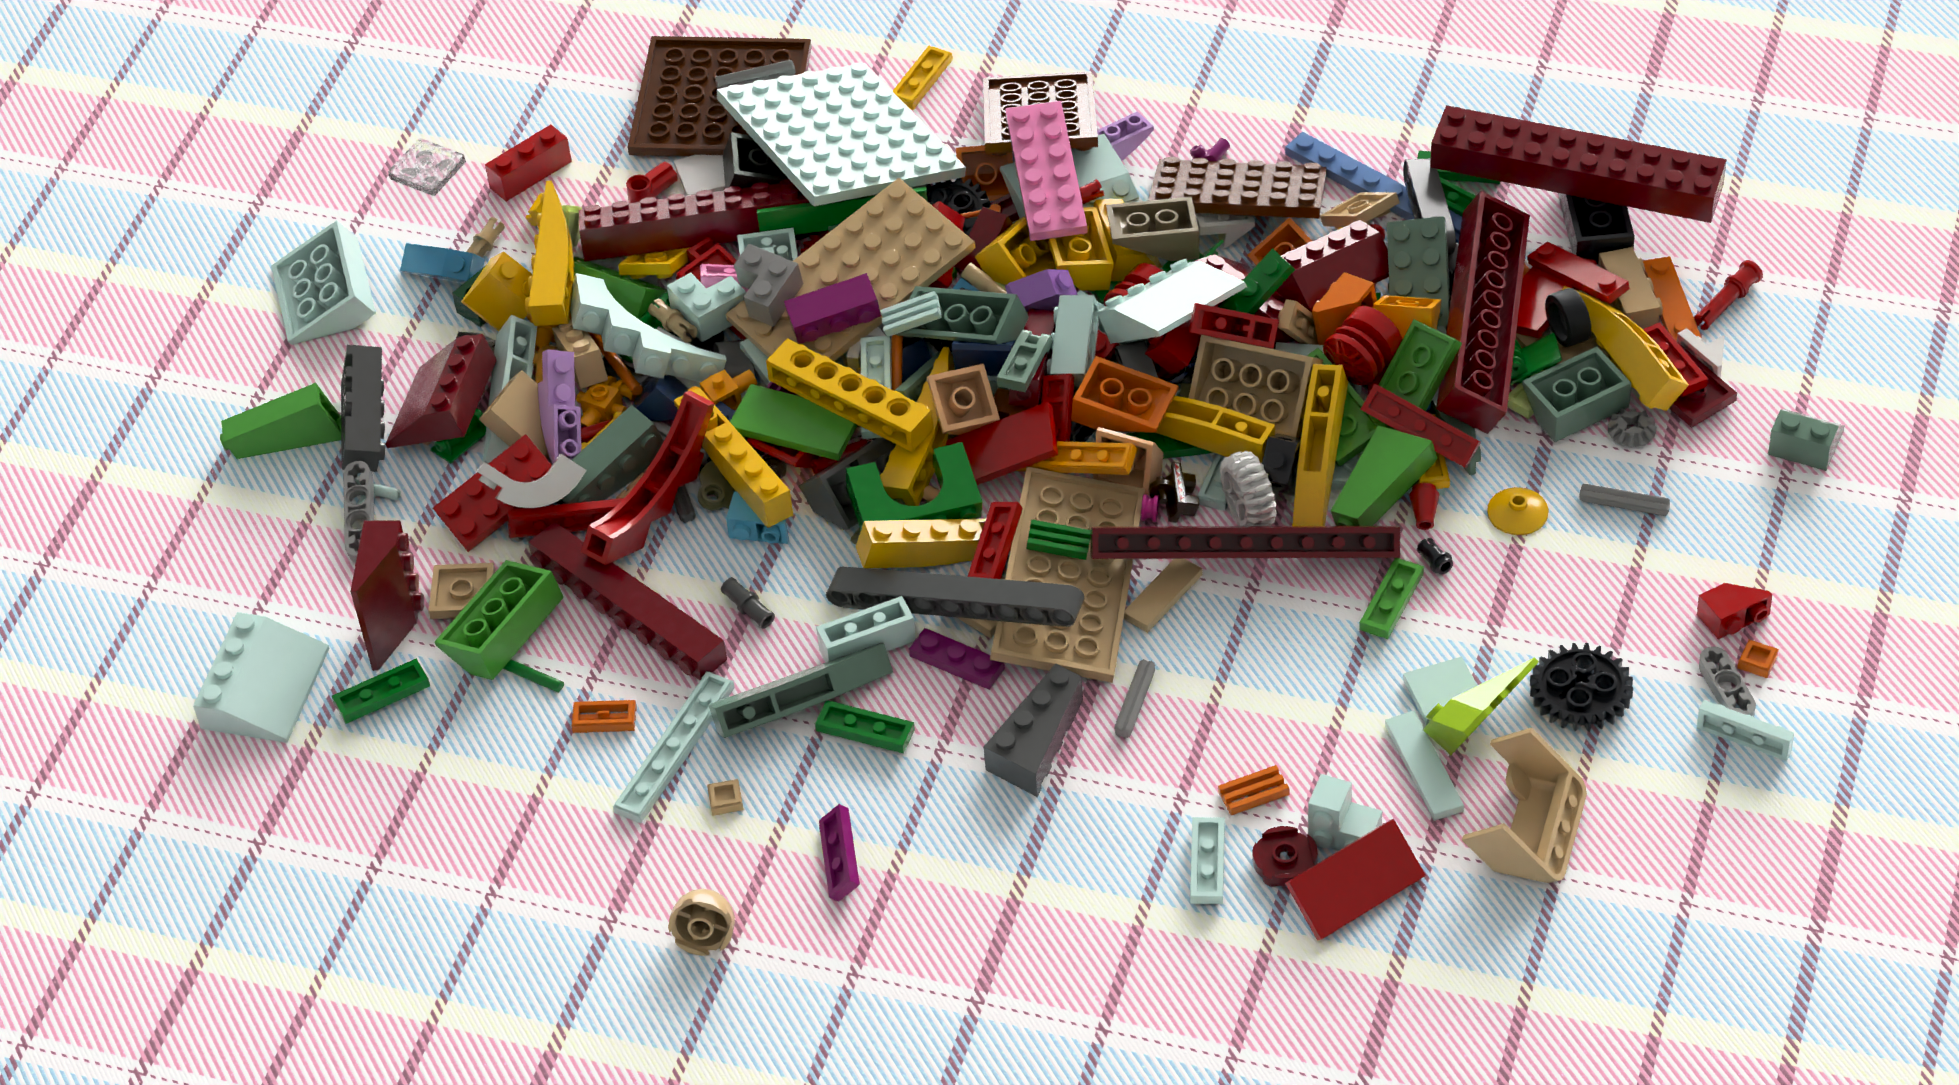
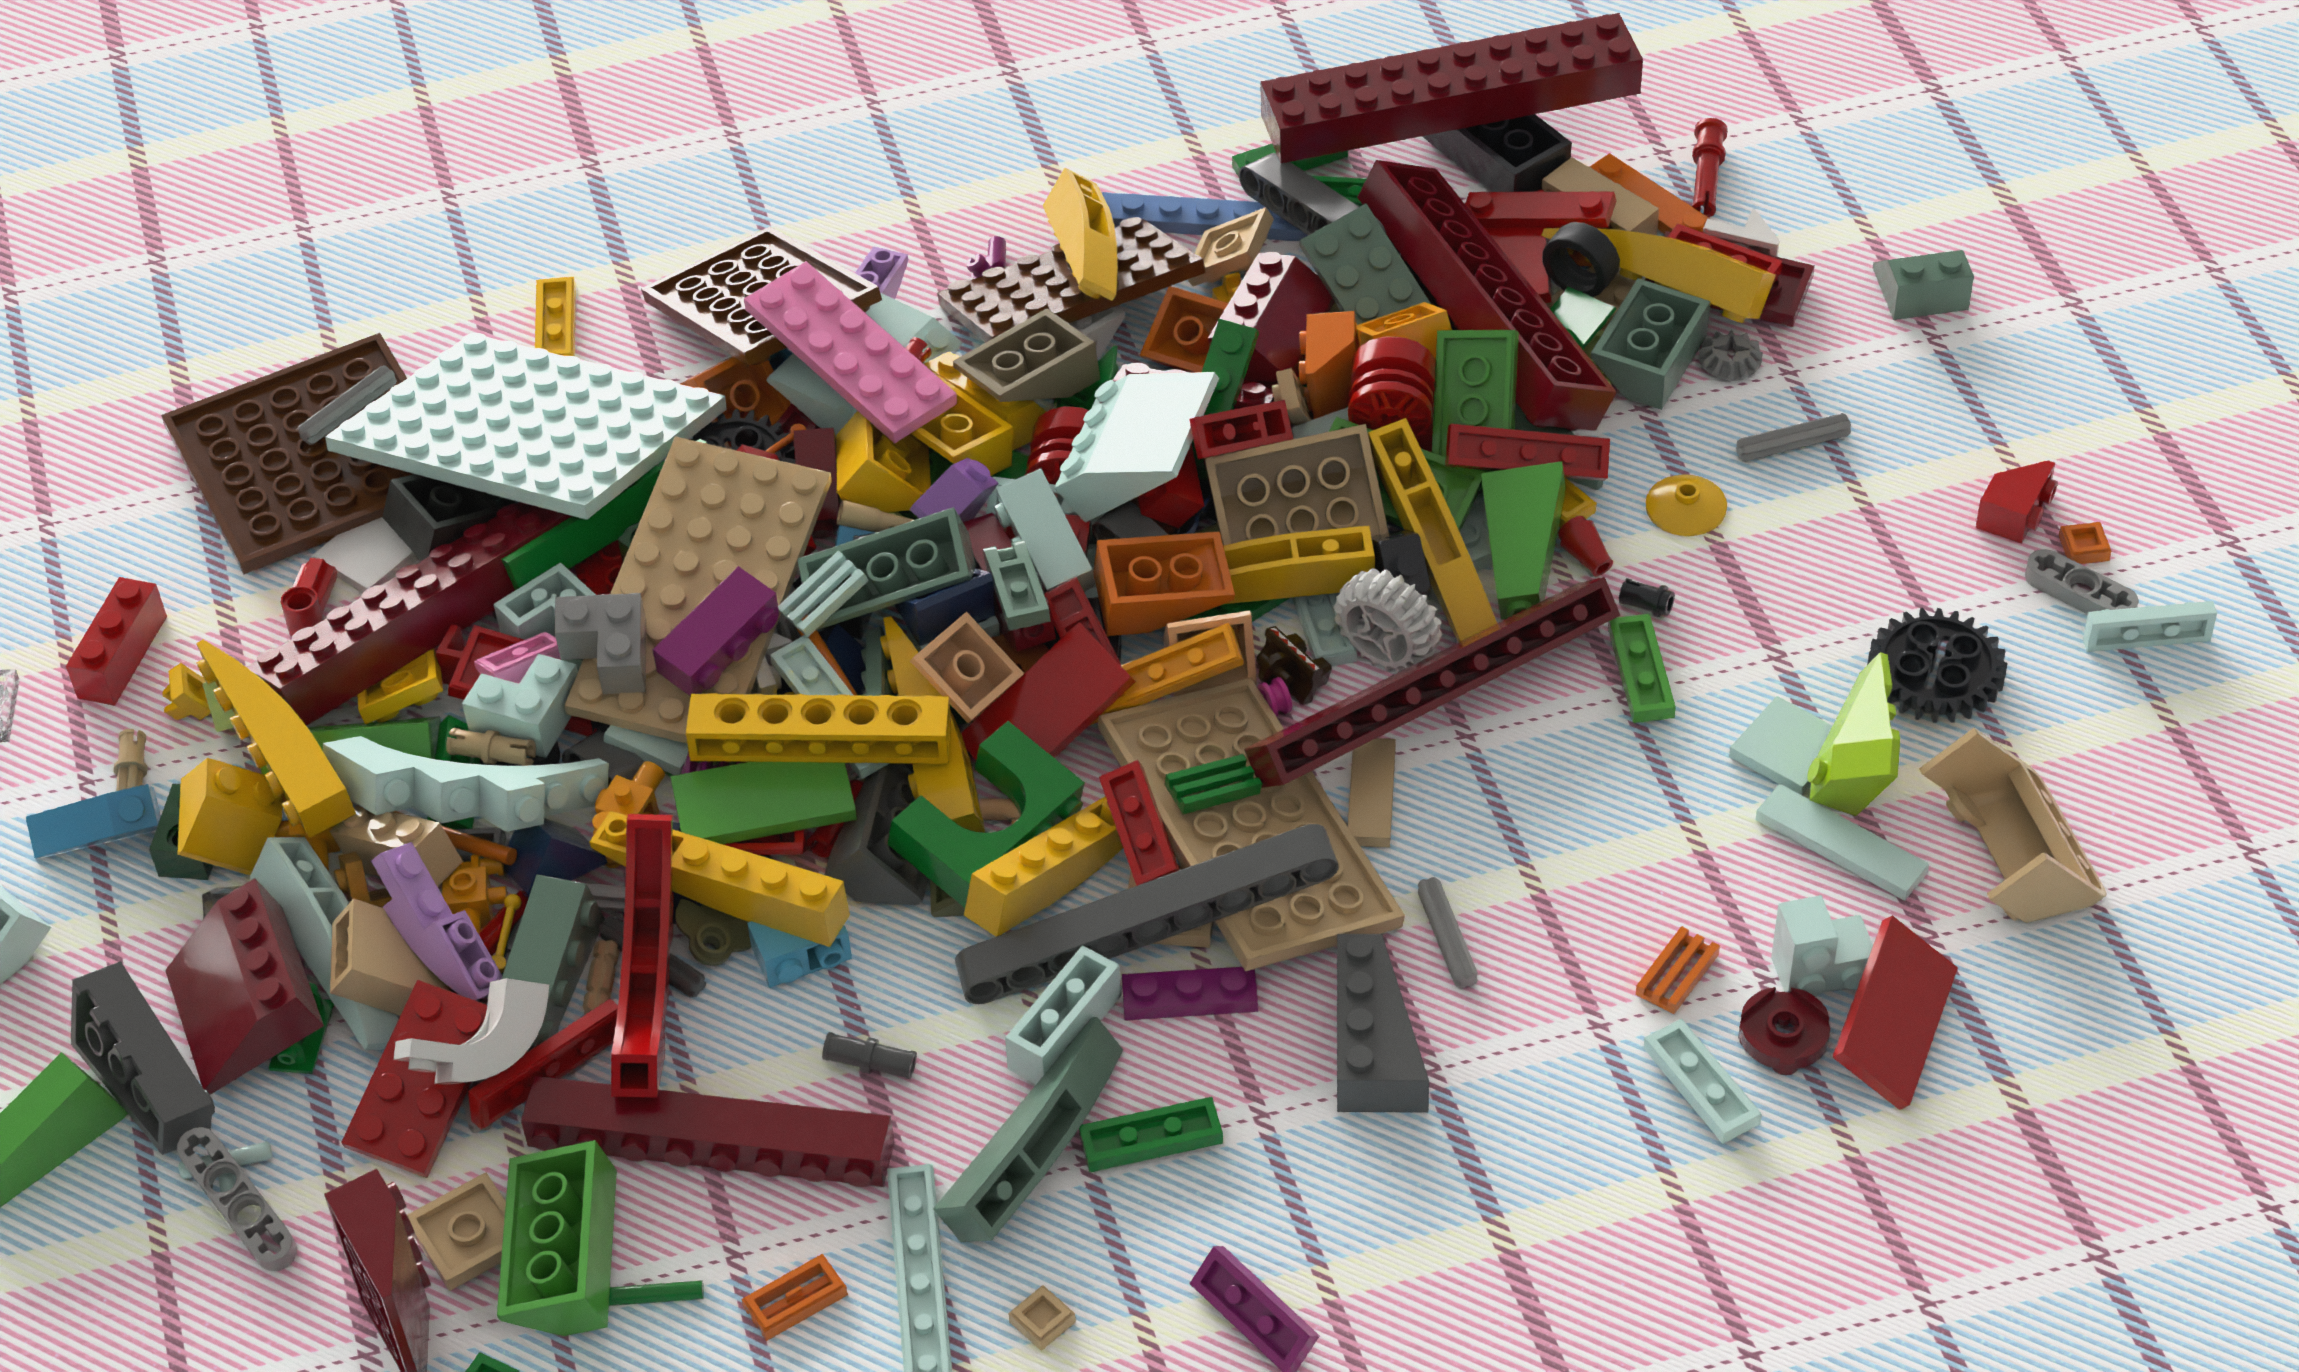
camera: 35 degrees left, 0 degrees up
(1258, 159) = (1084, 232): none -> yellow slope

